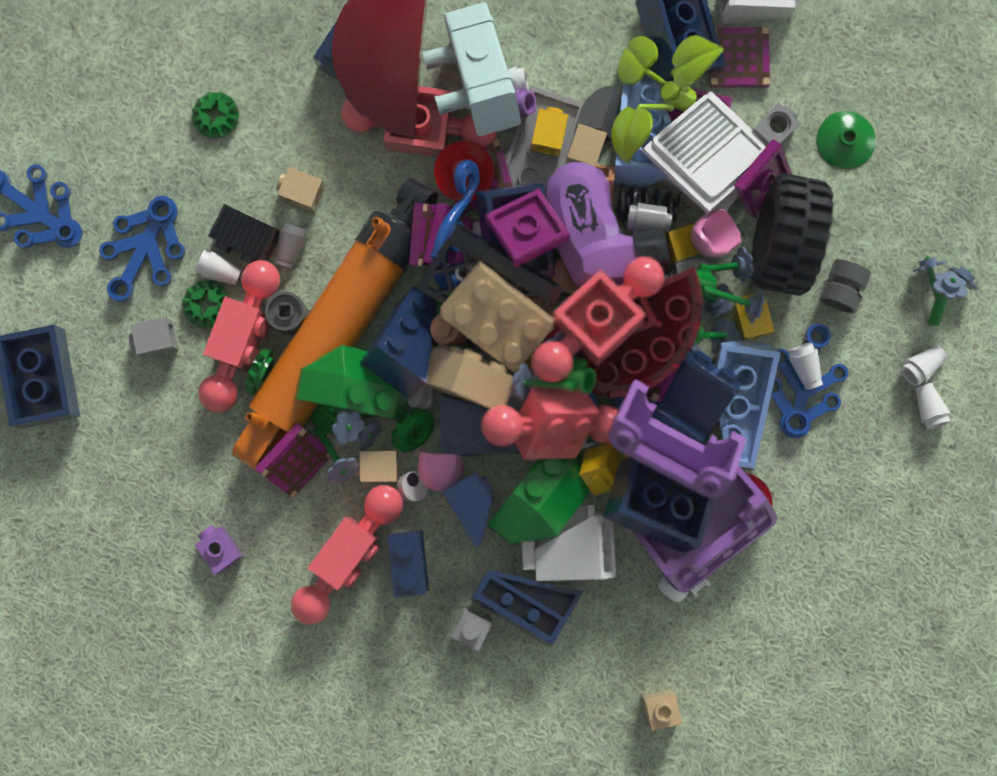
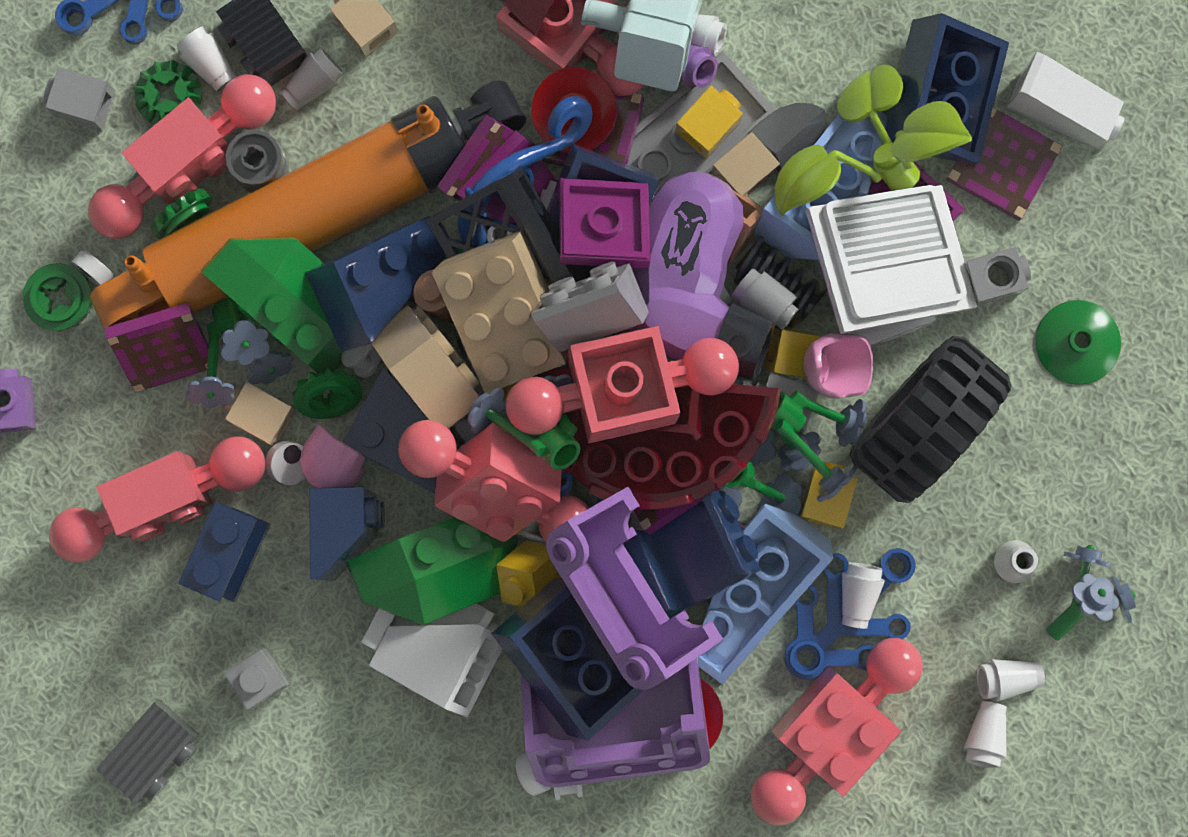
camera: 30 degrees right, 0 degrees up
(200, 457) = (53, 278): none -> green gear
(222, 437) = (92, 268): none -> white tile
(431, 712) = (149, 752): none -> dark grey brick
(527, 604) = (341, 687): dark blue wedge -> none
(551, 281) = (590, 307): none -> light grey slope
(757, 178) = (928, 327): magenta tile -> none
(841, 456) = (836, 731): none -> coral brick
(846, 282) = (965, 524): dark grey wheel -> none
(883, 296) = (1006, 563): none -> white cone

